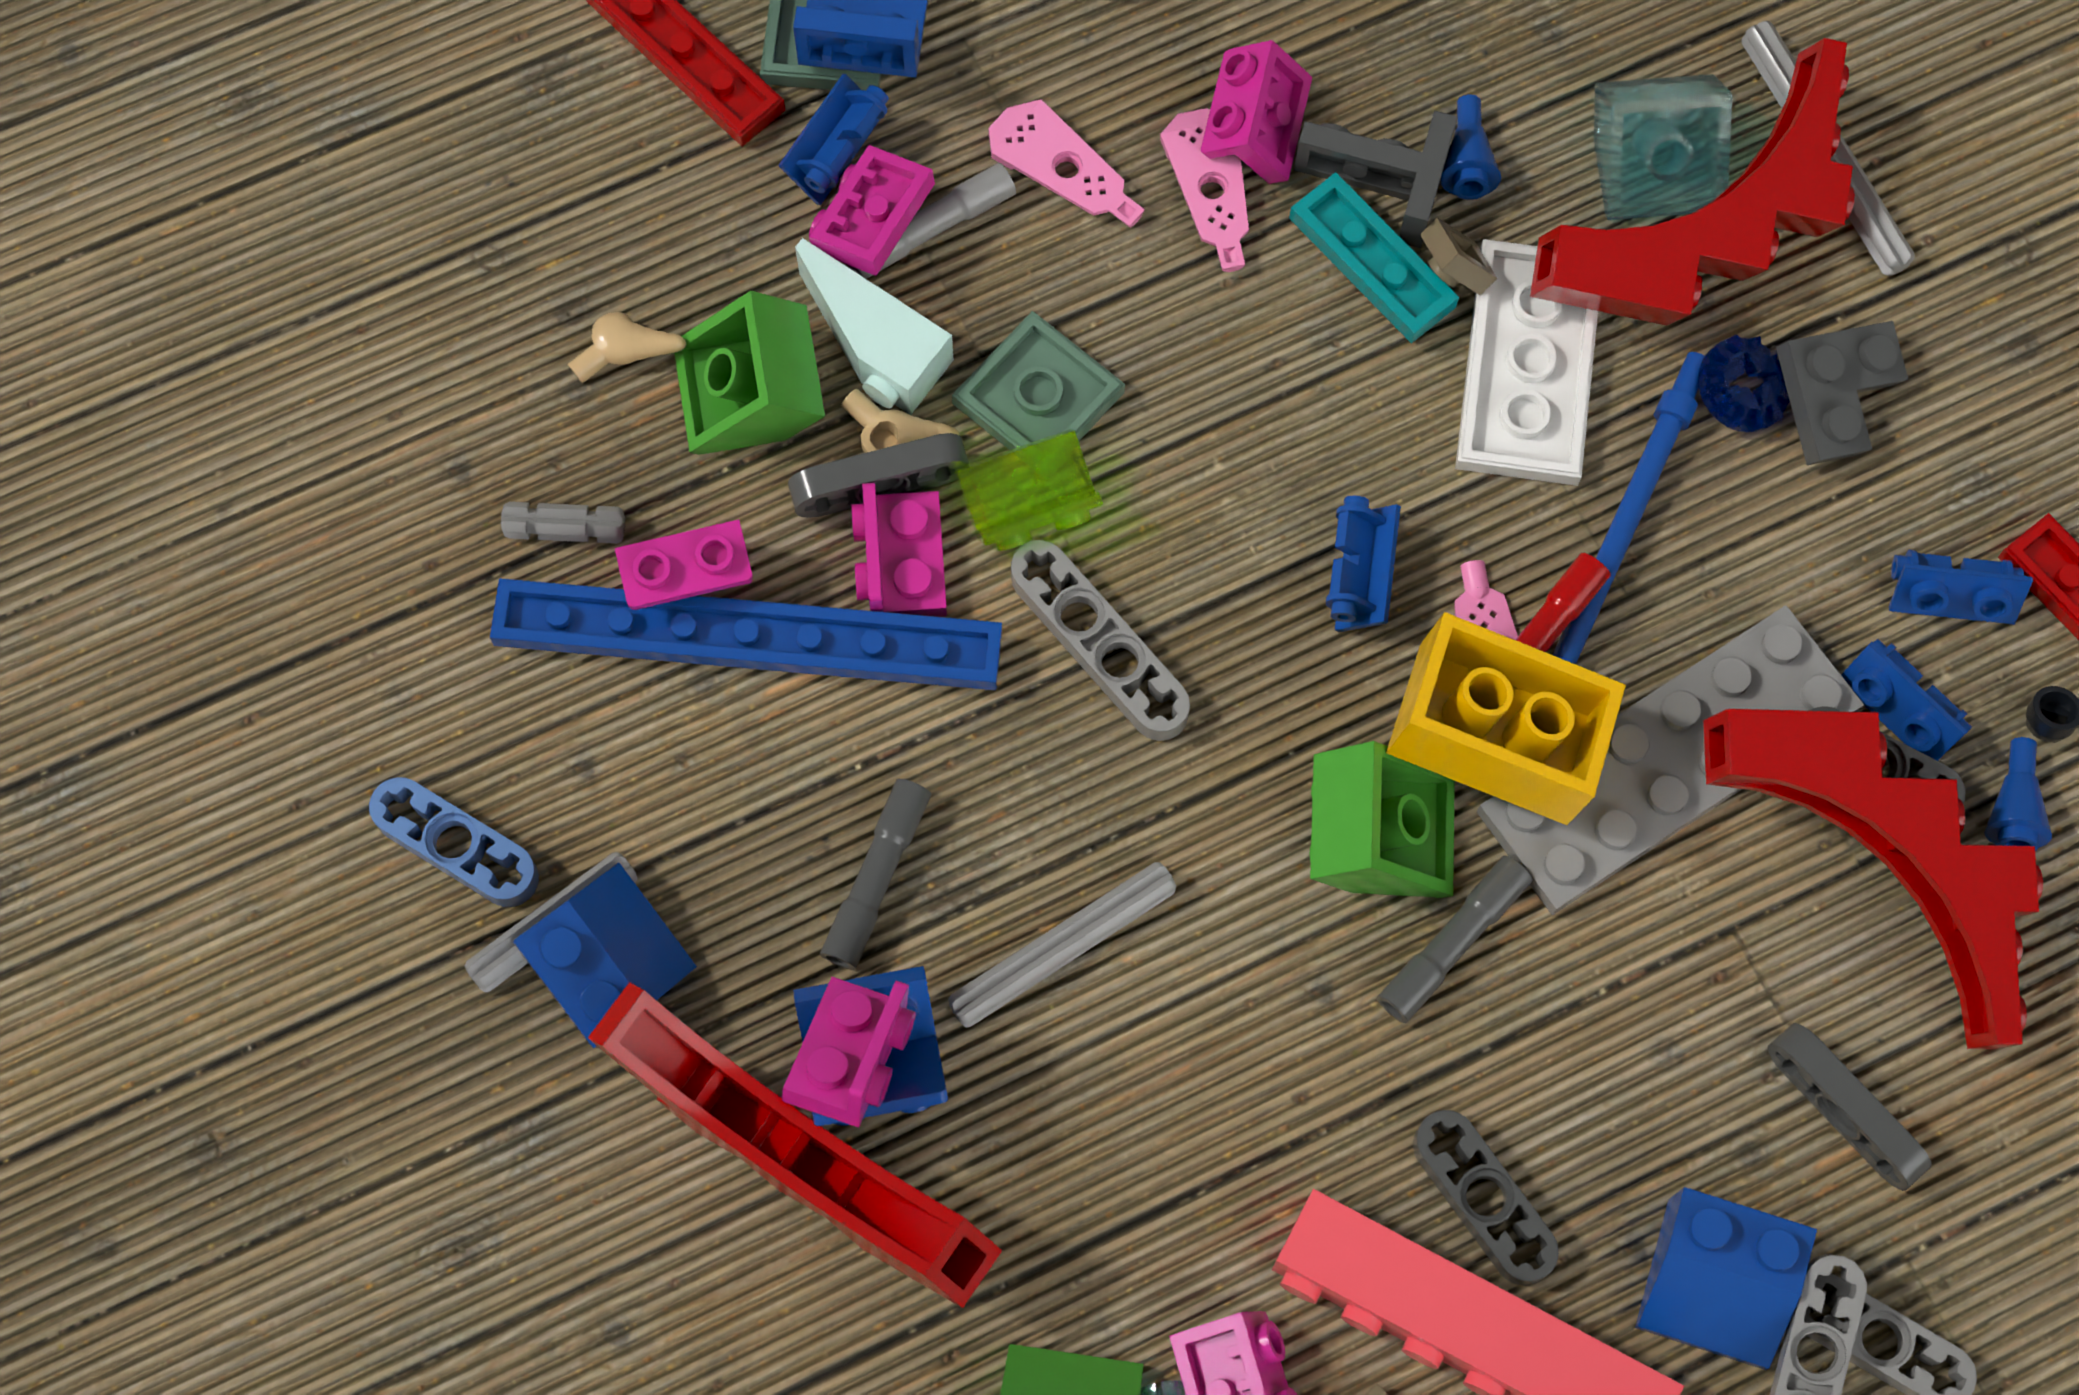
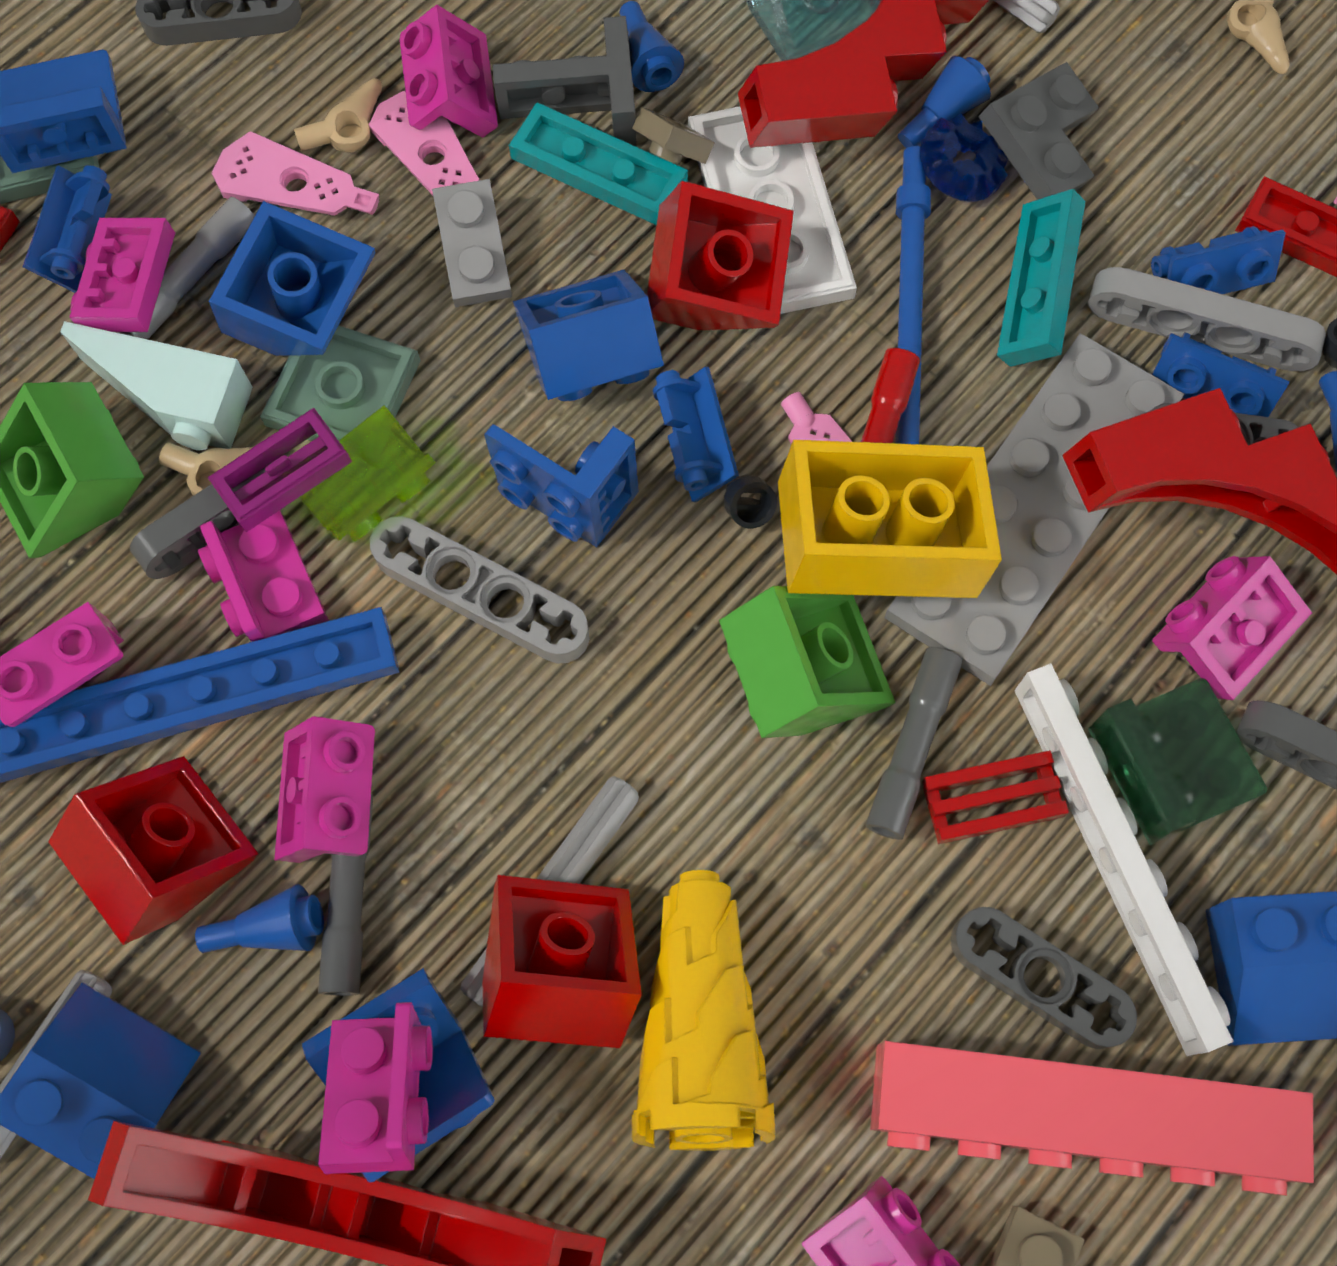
camera: 20 degrees left, 0 degrees up
(716, 765) = (150, 846): none -> red slope
(807, 877) = (281, 922): none -> blue cone
(890, 772) = (325, 790): none -> dark pink bracket
(960, 479) = (285, 477): none -> magenta tile
(1028, 278) = (289, 283): none -> blue slope
(1047, 1008) = (560, 963): none -> red slope
(1138, 123) = (345, 123): none -> tan animal
(1148, 1124) = (700, 1043): none -> yellow cone
(1218, 294) = (472, 243): none -> light grey plate
(1221, 596) = (575, 504): none -> blue bracket
(1297, 429) = (589, 335): none -> blue slope
(1384, 659) = (748, 511): none -> black hinge
(1451, 403) = (718, 260): none -> red slope
(1516, 994) = (1045, 784): none -> red tile
(1607, 1145) = (1132, 881): none -> white plate
(1699, 1049) = (1176, 759): none -> clear green bracket
(1766, 311) = (956, 91): none -> blue cone
(1770, 536) = (1041, 279): none -> teal plate
(1812, 944) = (1234, 622): none -> dark pink bracket
(1920, 638) = (1210, 317): none -> light grey beam

